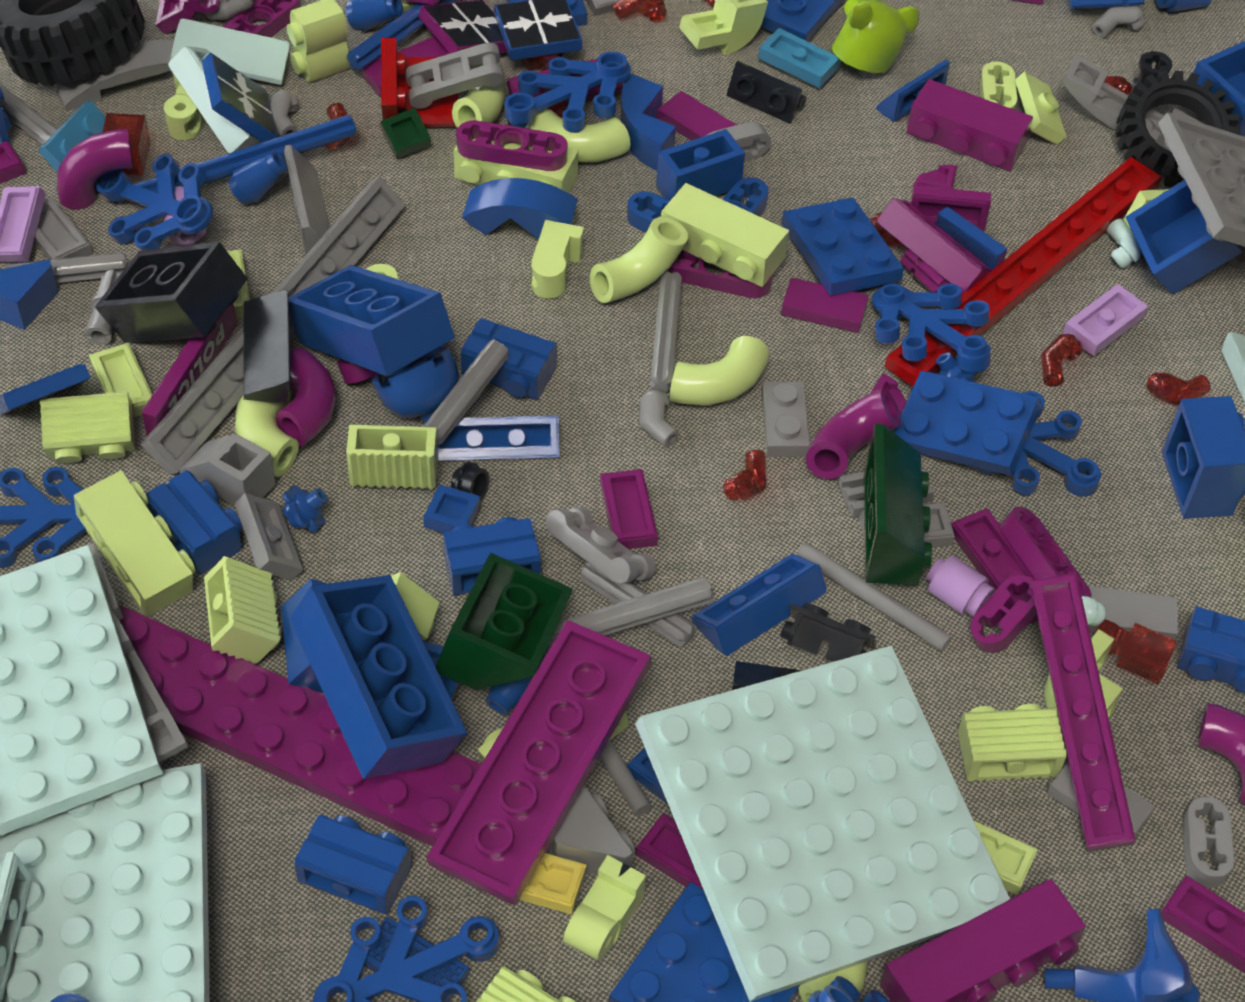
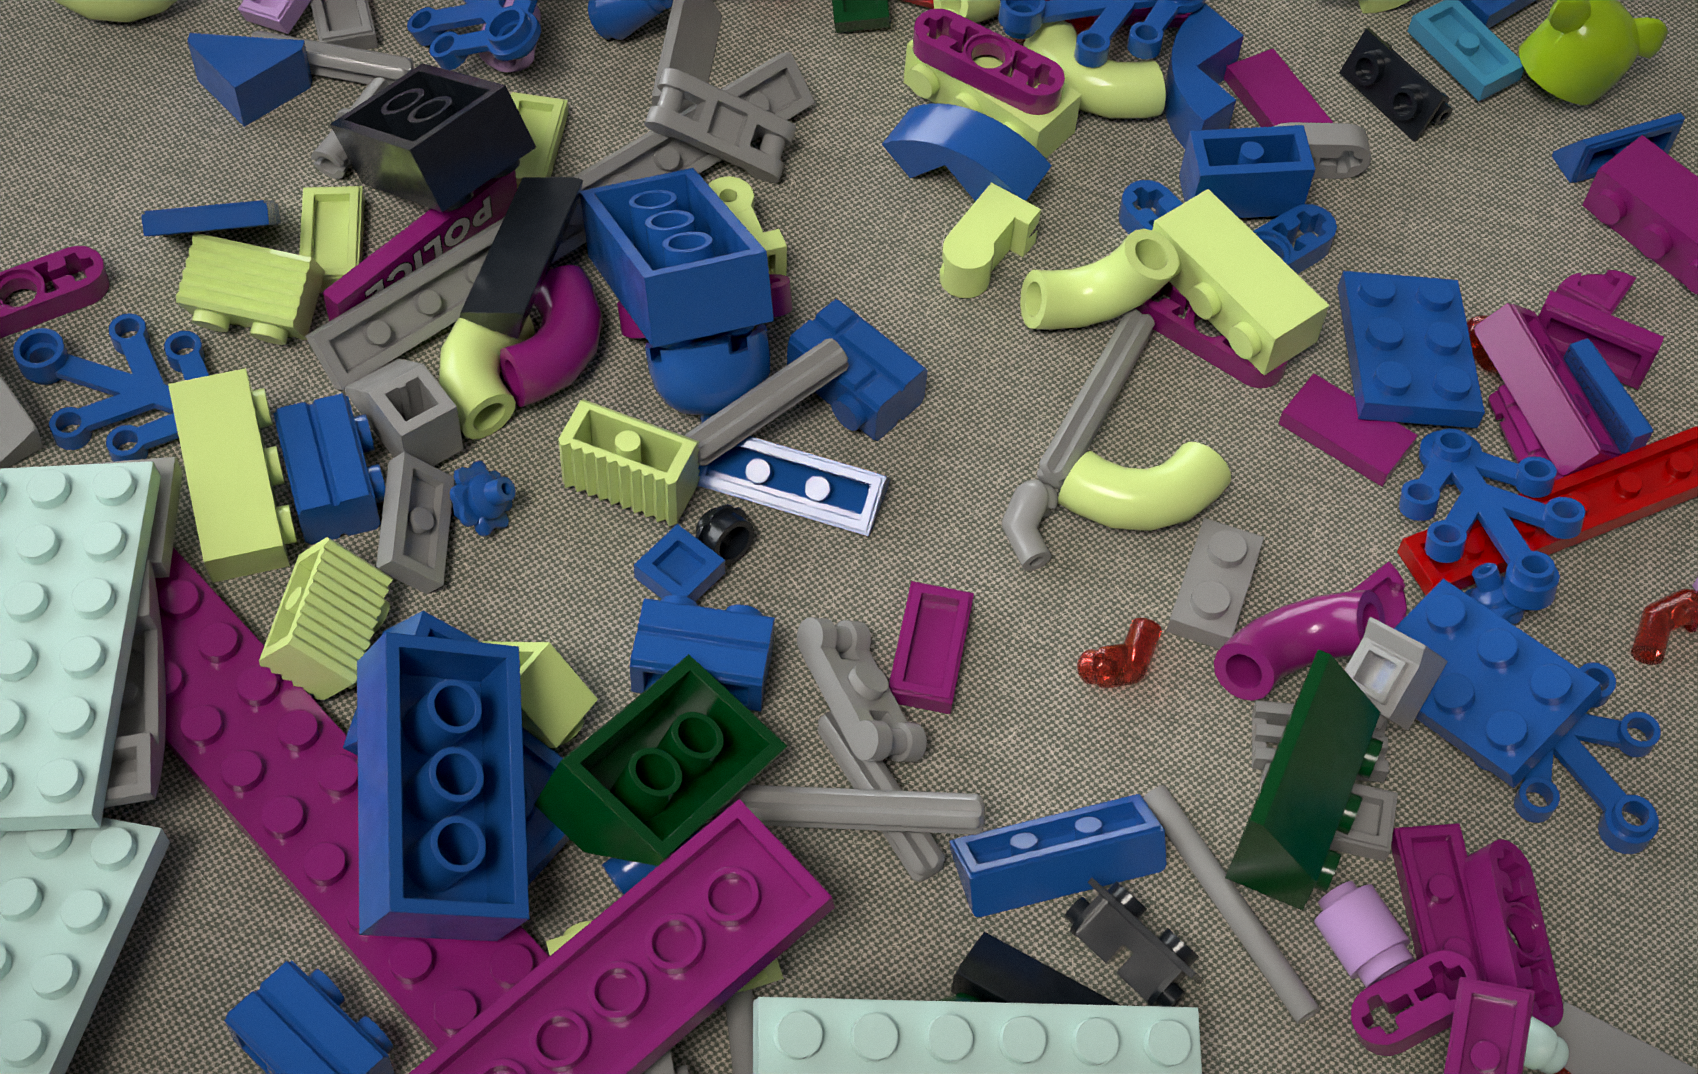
camera: 20 degrees right, 5 degrees up
(356, 233) = (721, 124): none -> light grey plate
(920, 427) = (1394, 672): none -> light grey window

